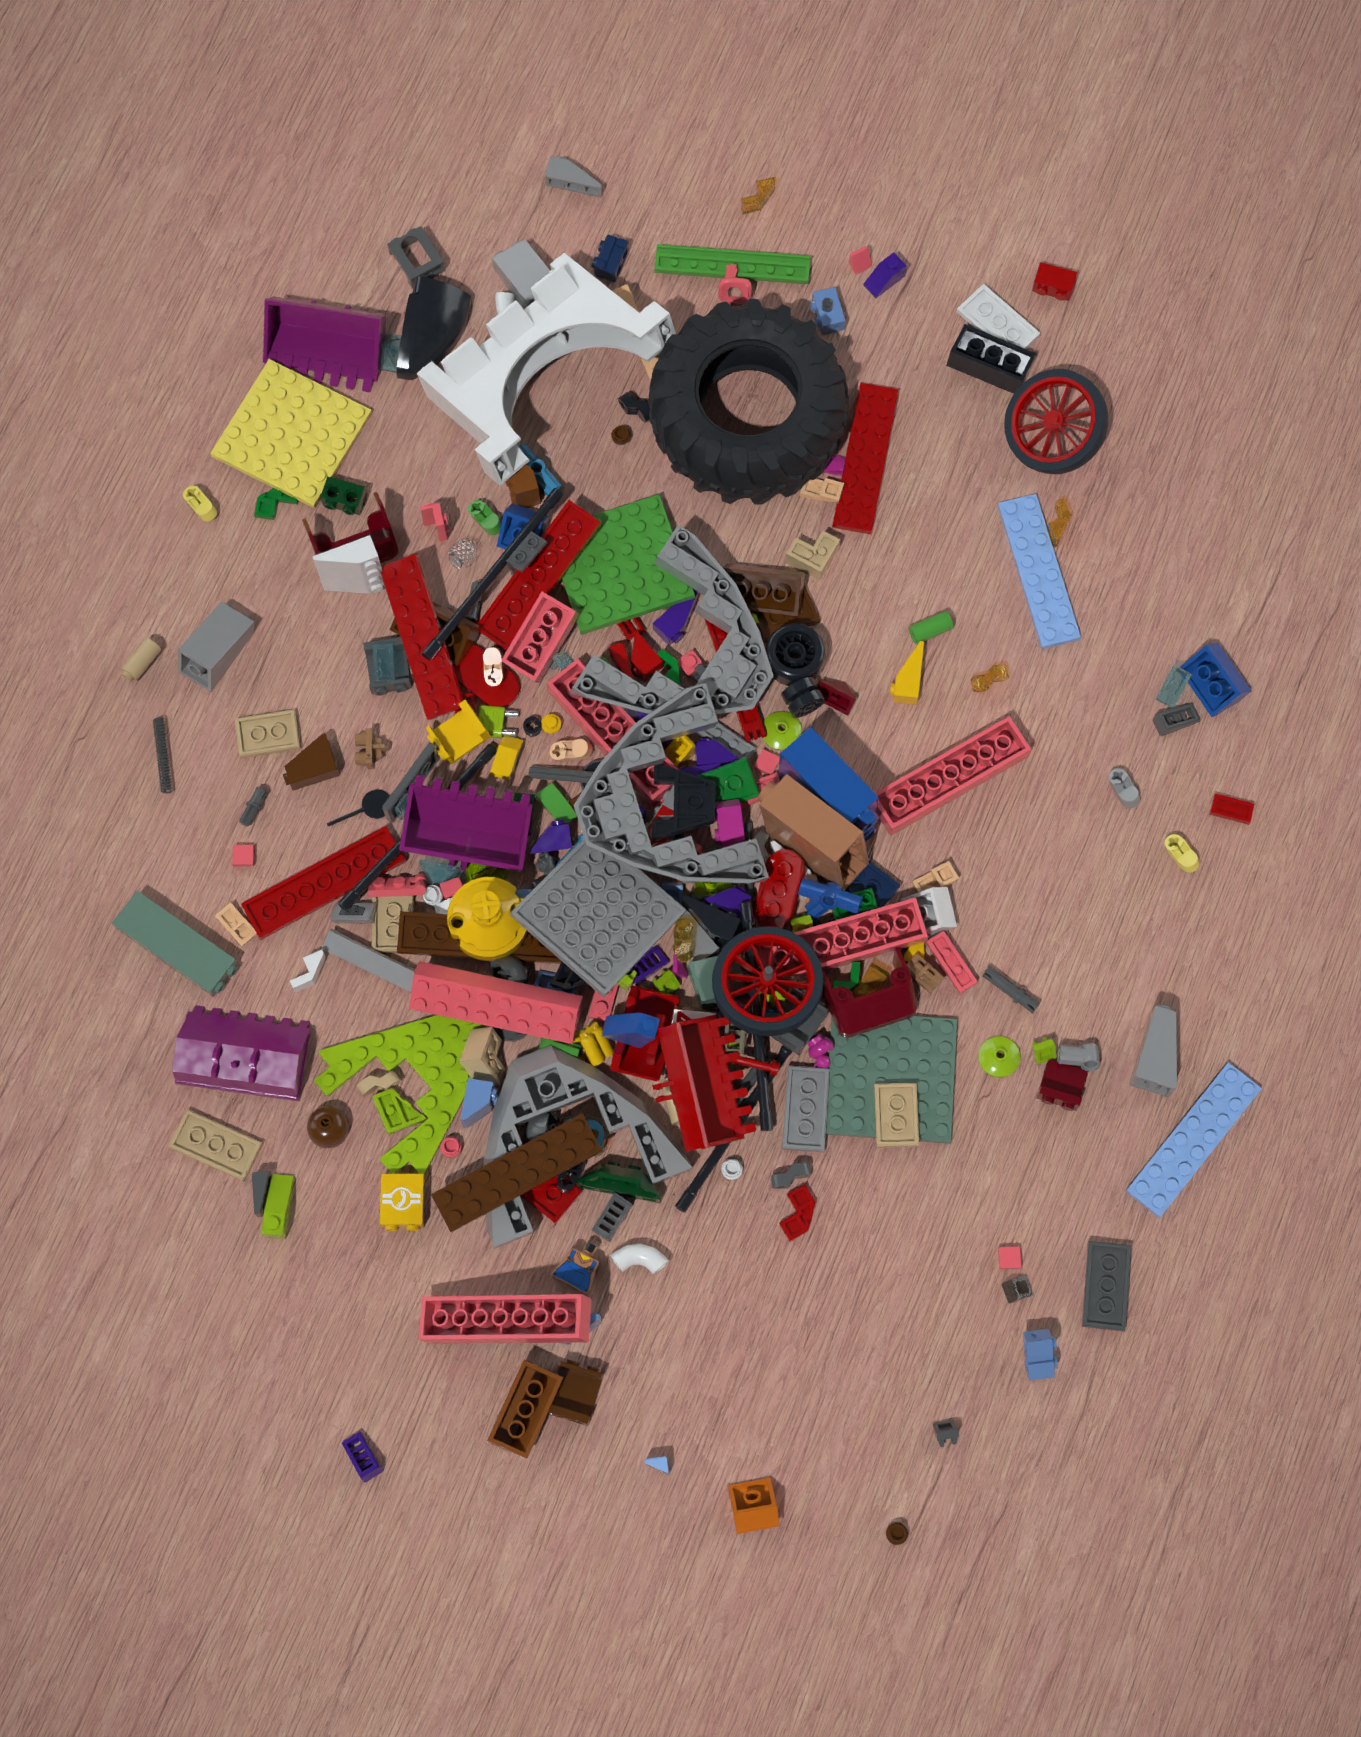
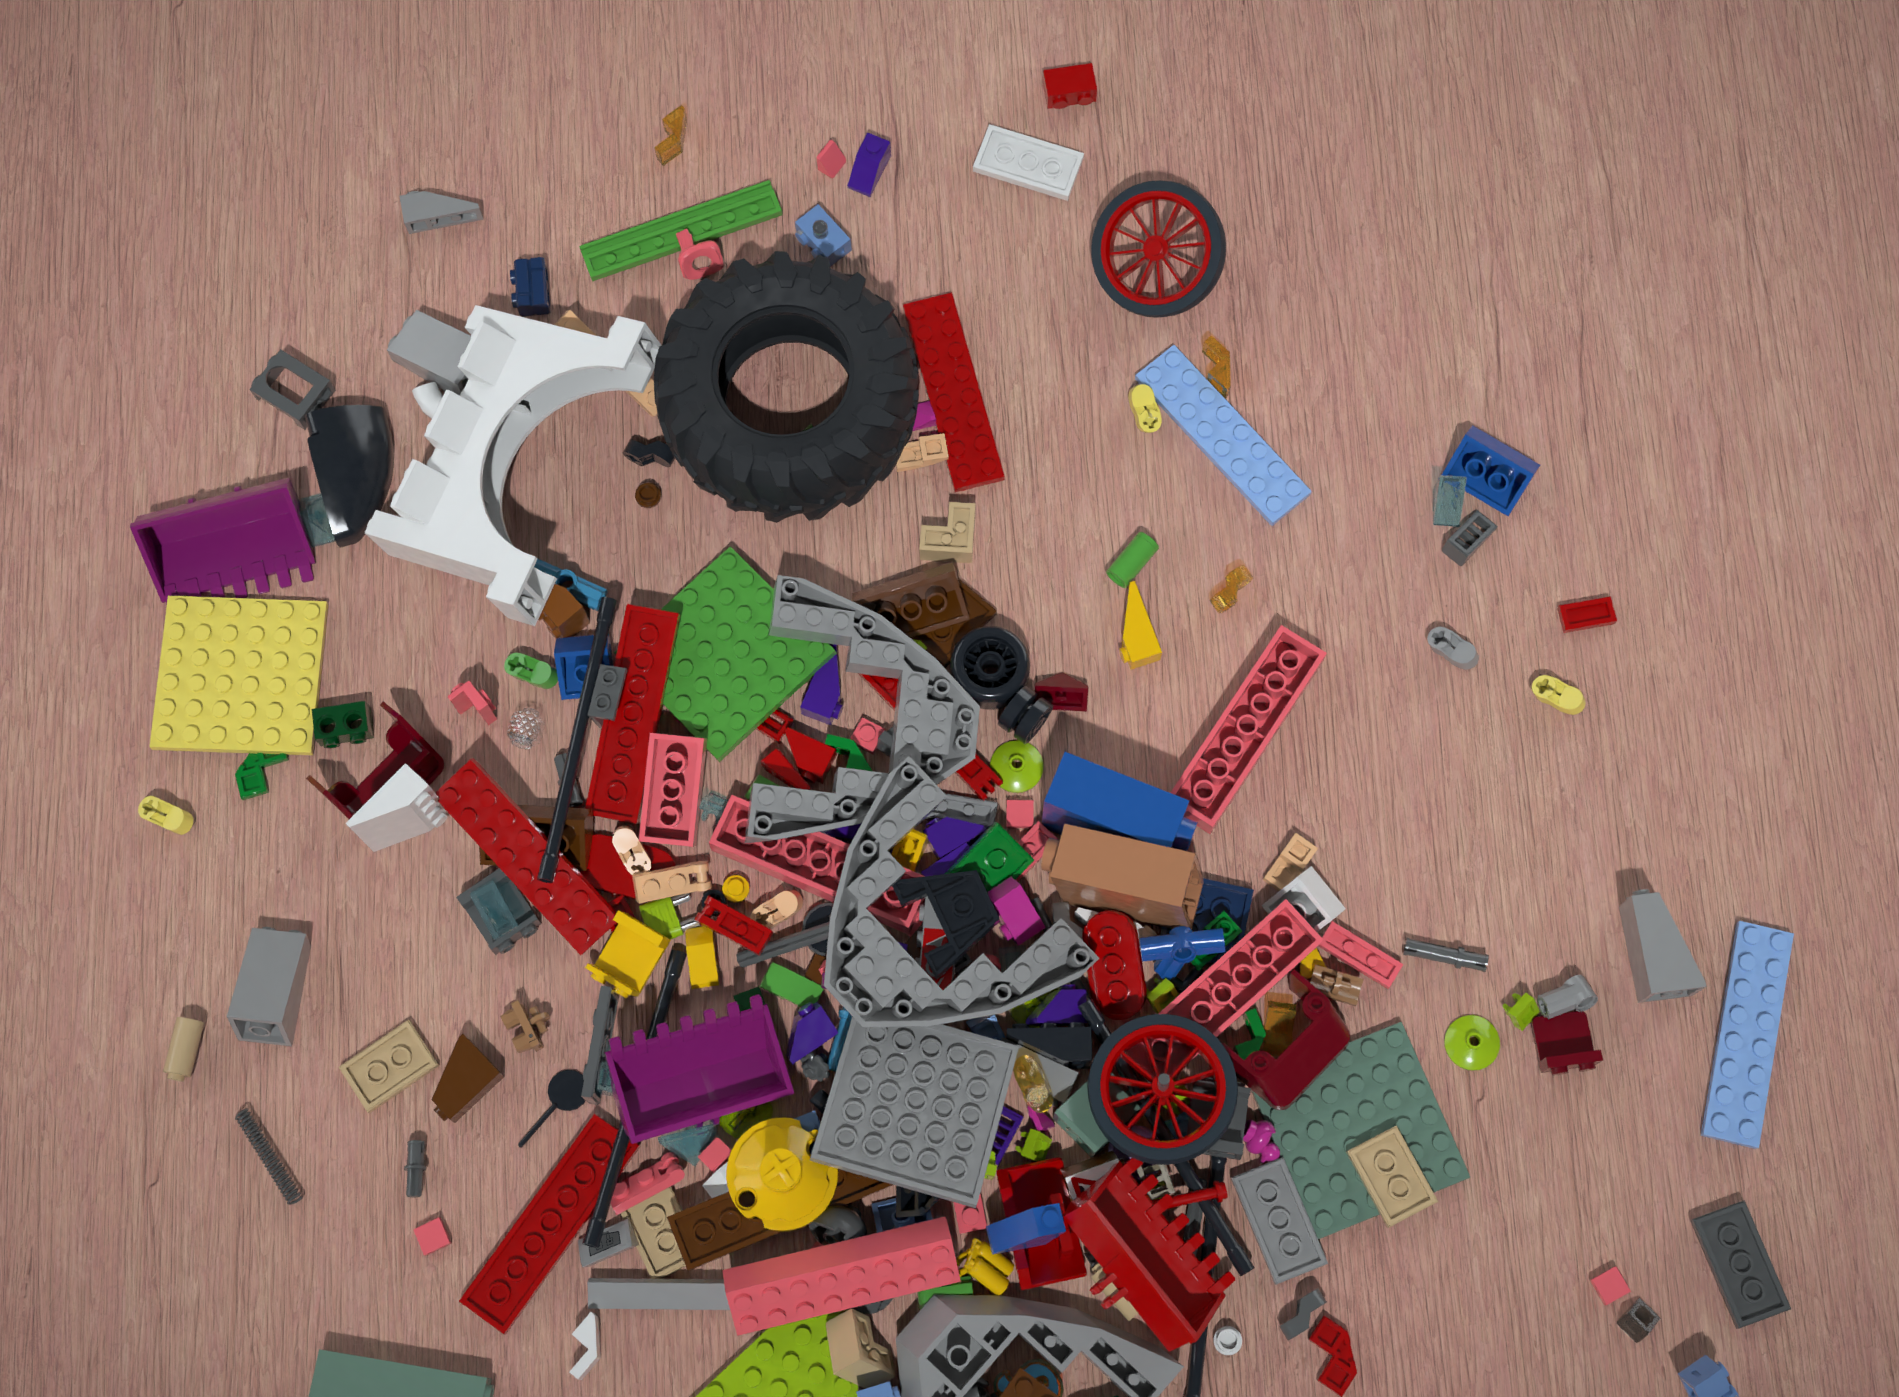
camera: 25 degrees left, 0 degrees up
(236, 924) = (465, 1329): light nougat slope -> none
(433, 895) = (695, 1173): white plate -> none
(510, 698) = (671, 881): none -> light nougat plate
(537, 746) = (734, 926): none -> red plate
(990, 359) = (1043, 209): black slope -> none
(993, 519) = (1149, 419): none -> light yellow piece

